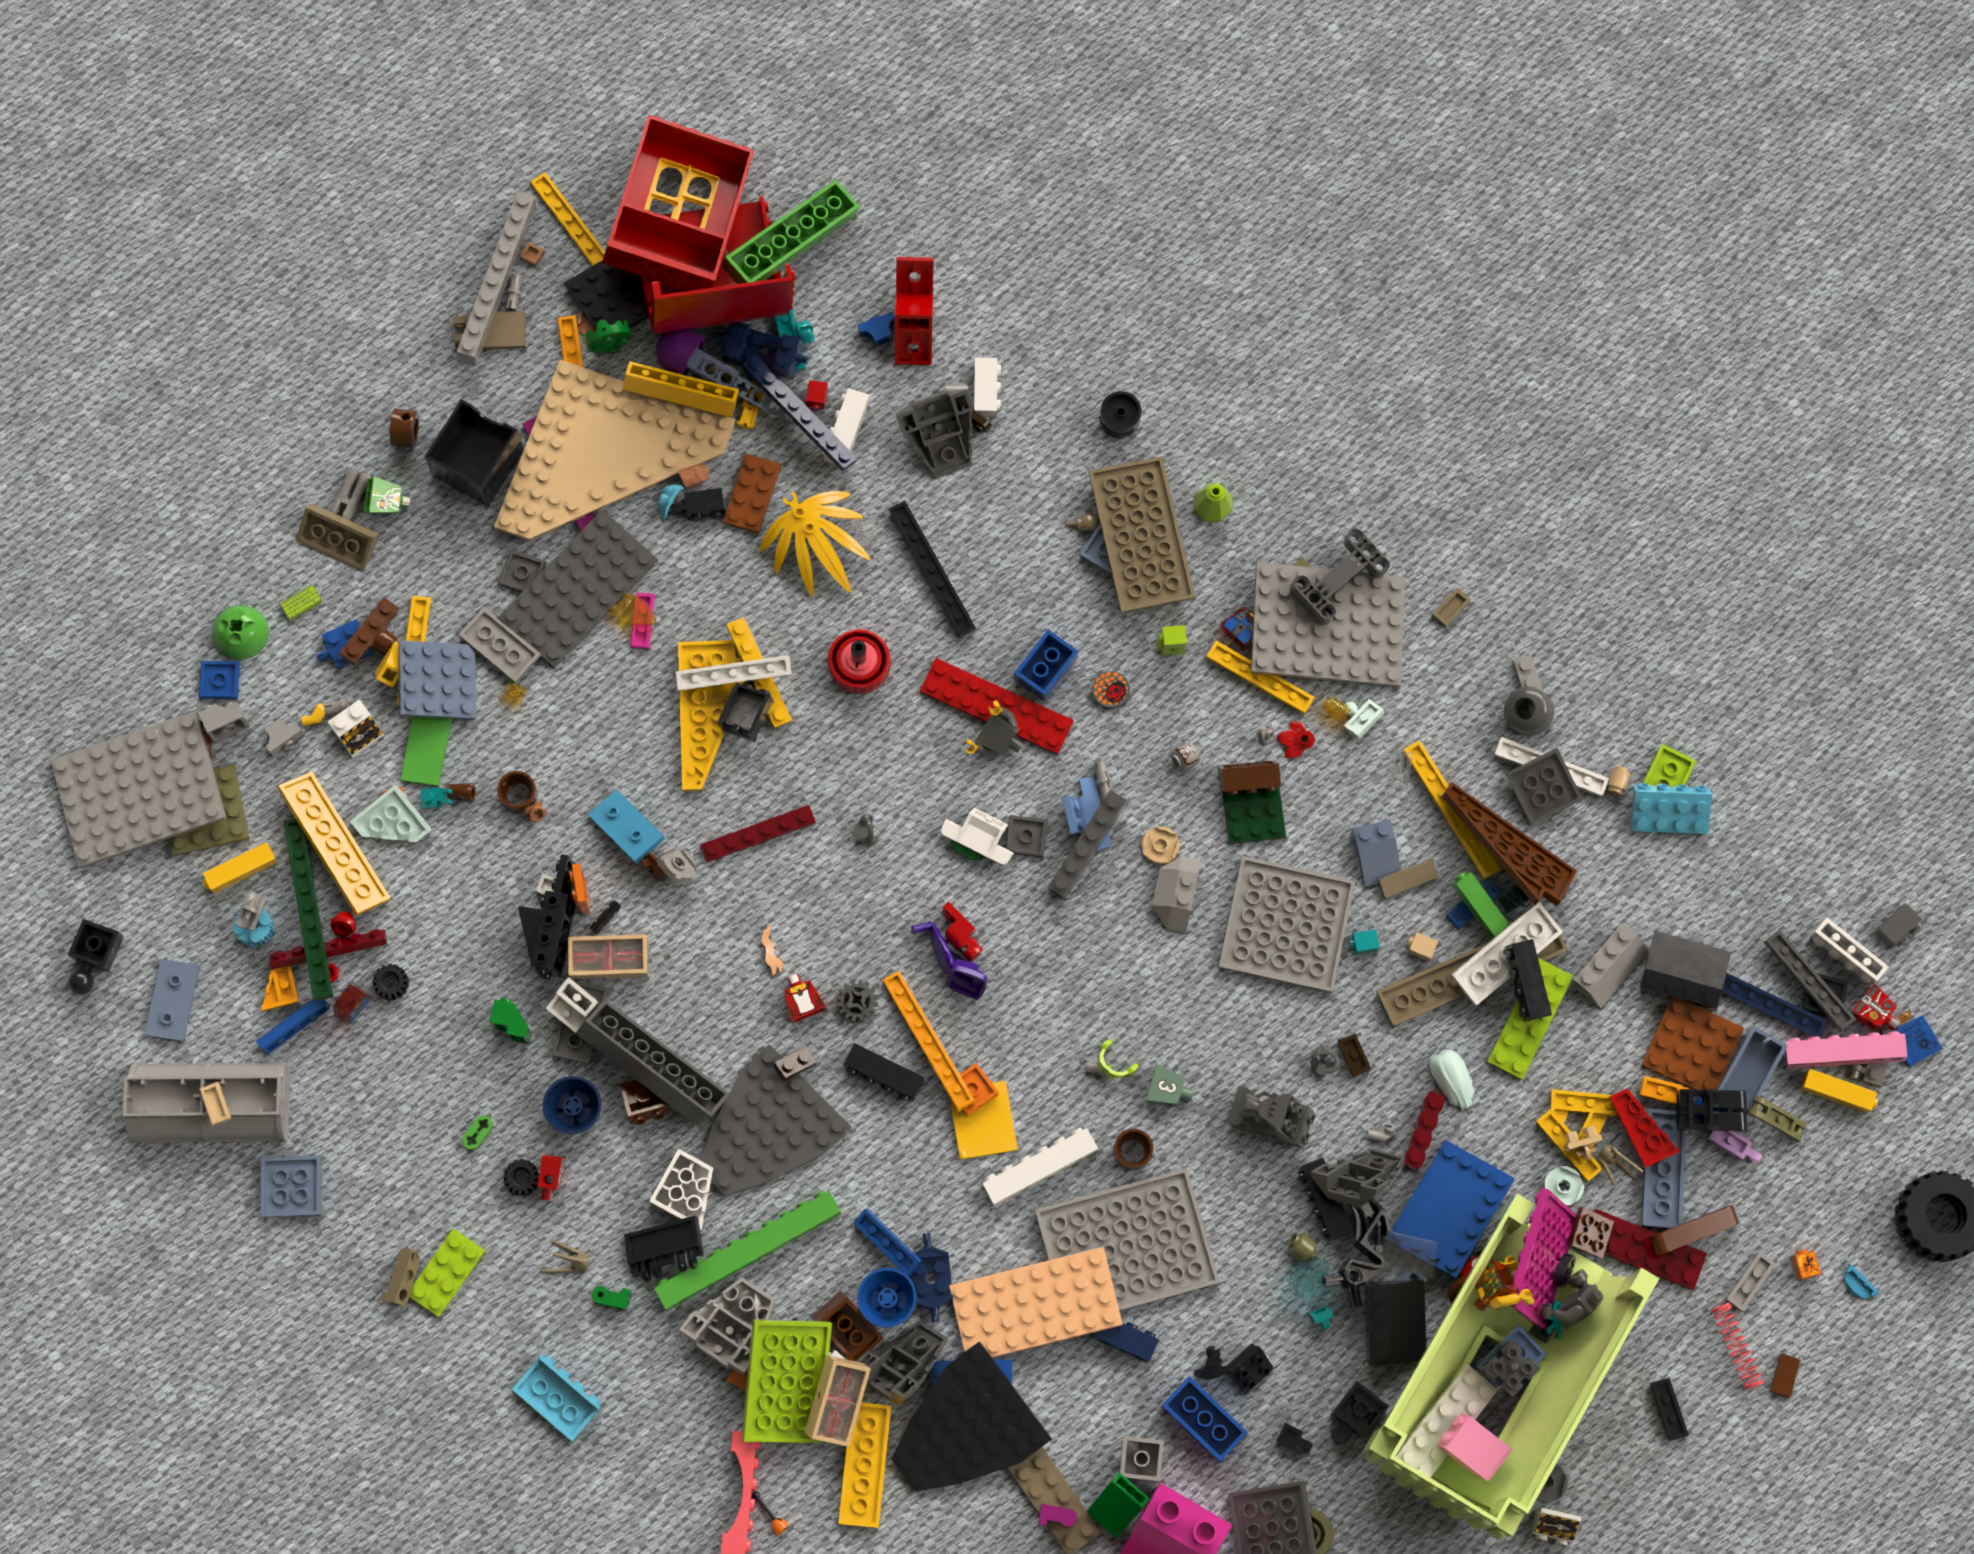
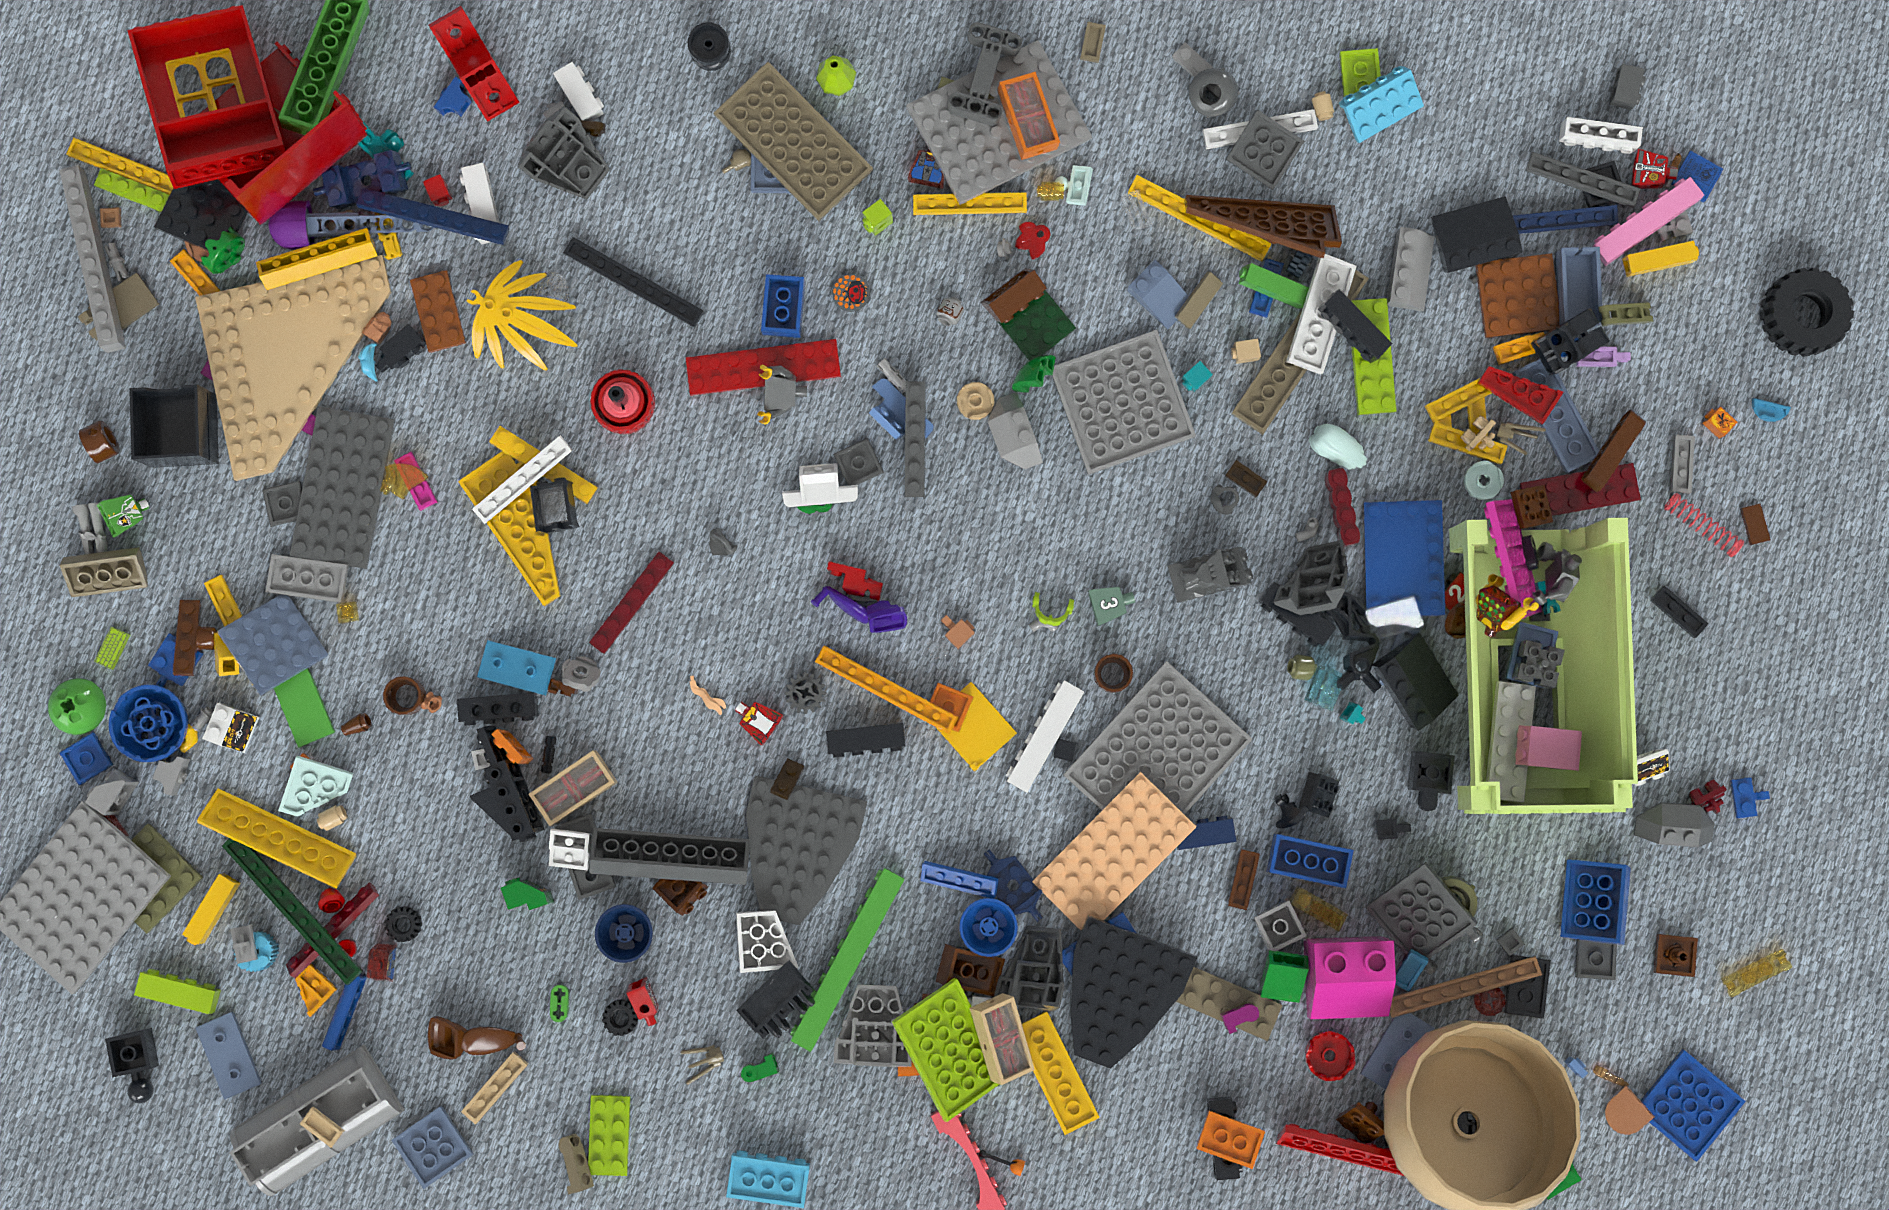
camera: 25 degrees left, 10 degrees up
(165, 919) = (177, 992): none -> lime brick
(269, 677) = (127, 730): none -> blue brick
(366, 1103) = (450, 1039): none -> reddish brown piece
(376, 1169) = (494, 1087): none -> tan plate
(390, 855) = (332, 817): none -> tan brick
(433, 797) = (337, 745): teal plate -> none
(564, 242) = (131, 190): none -> lime plate
(564, 833) = (467, 706): none -> black brick
(1021, 1032) = (958, 633): none -> nougat brick
(1049, 1190) = (1064, 750): none -> black tile
(1135, 1400) = (1243, 879): none -> reddish brown plate
(1185, 1467) = (1318, 908): none -> clear yellow slope
(1225, 850) = (1033, 373): none -> green brick
(1355, 633) = (1028, 115): none -> brick

